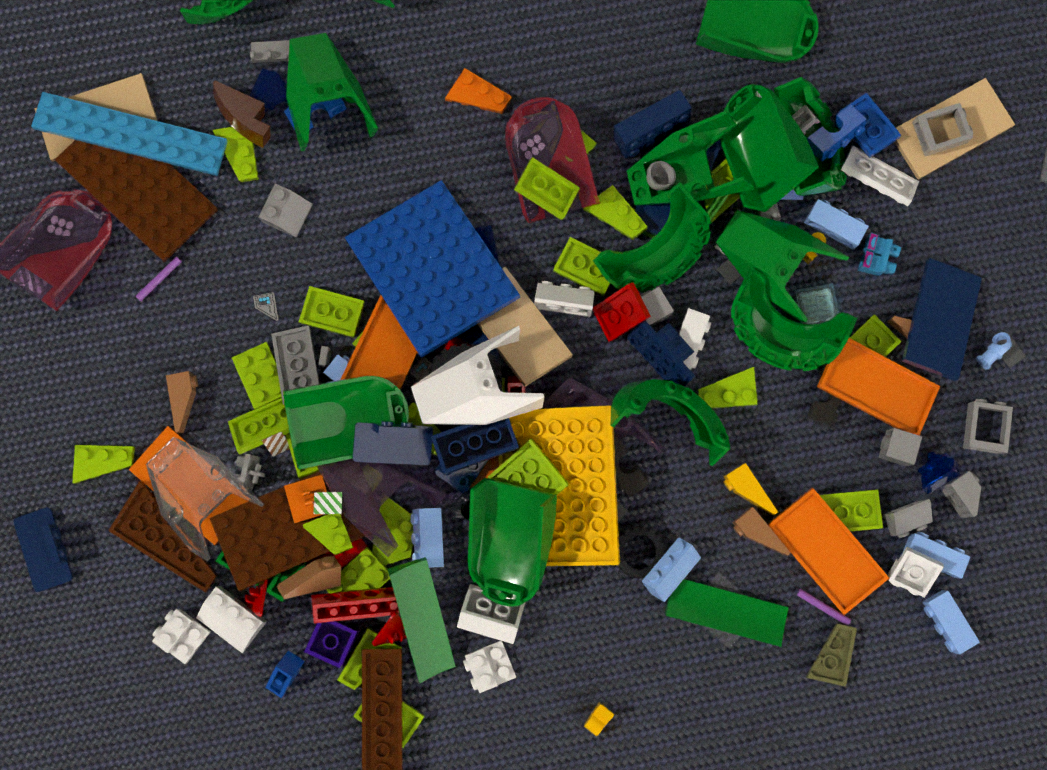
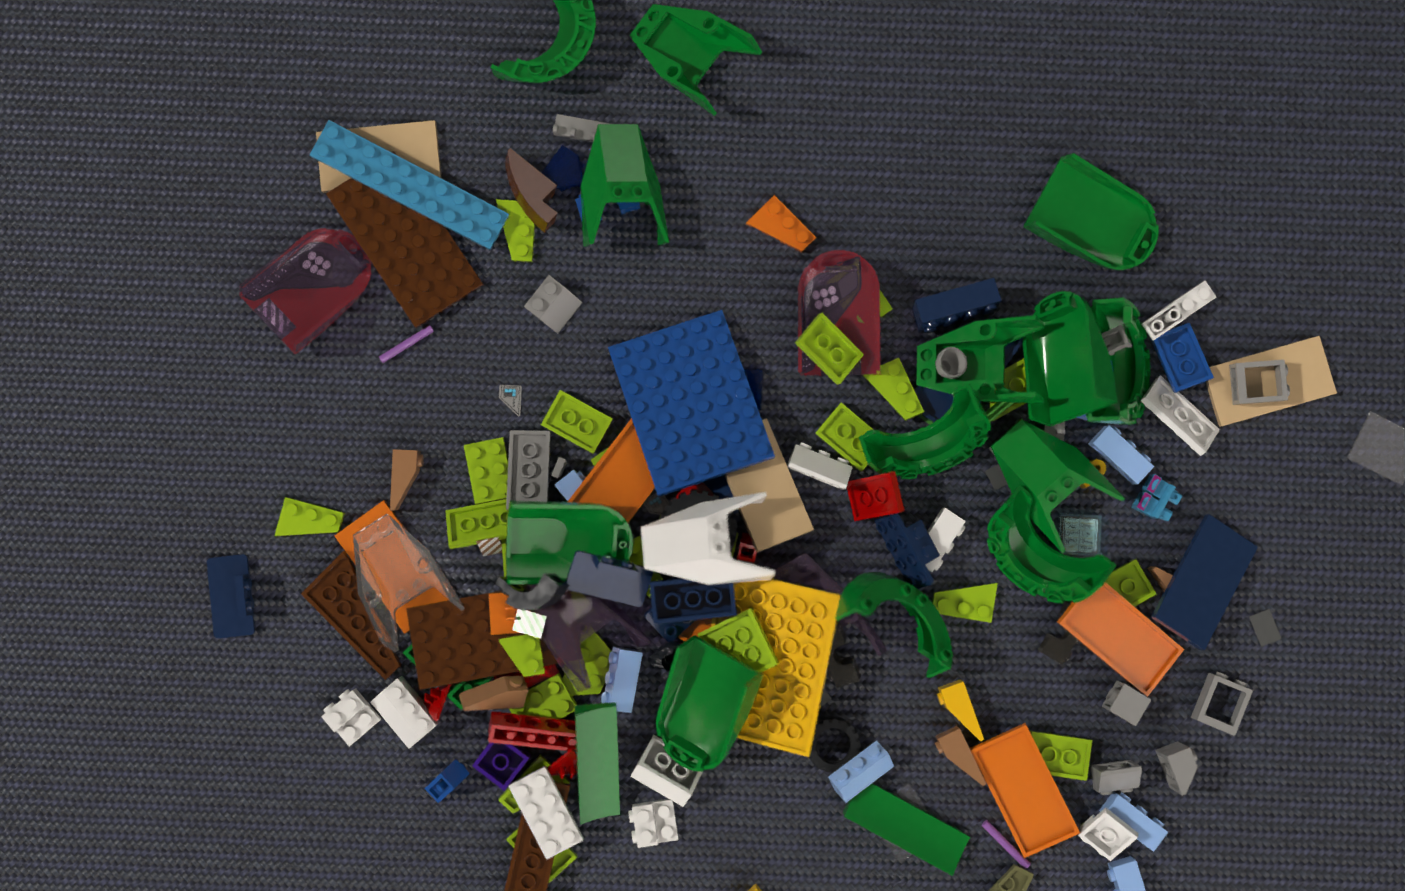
camera: 15 degrees right, 5 degrees up
(250, 470) = (457, 567): light grey hips -> none
(335, 471) = (545, 594): none -> black arch
(384, 679) = (546, 812): none -> white plate
(657, 306) = (912, 497): light grey head -> none
(825, 144) = (1131, 370): blue arch -> none
(854, 83) = (1178, 310): none -> white slope
(938, 471) = (1158, 737): clear blue slope -> none
(994, 350) = (1250, 626): light blue connector -> none

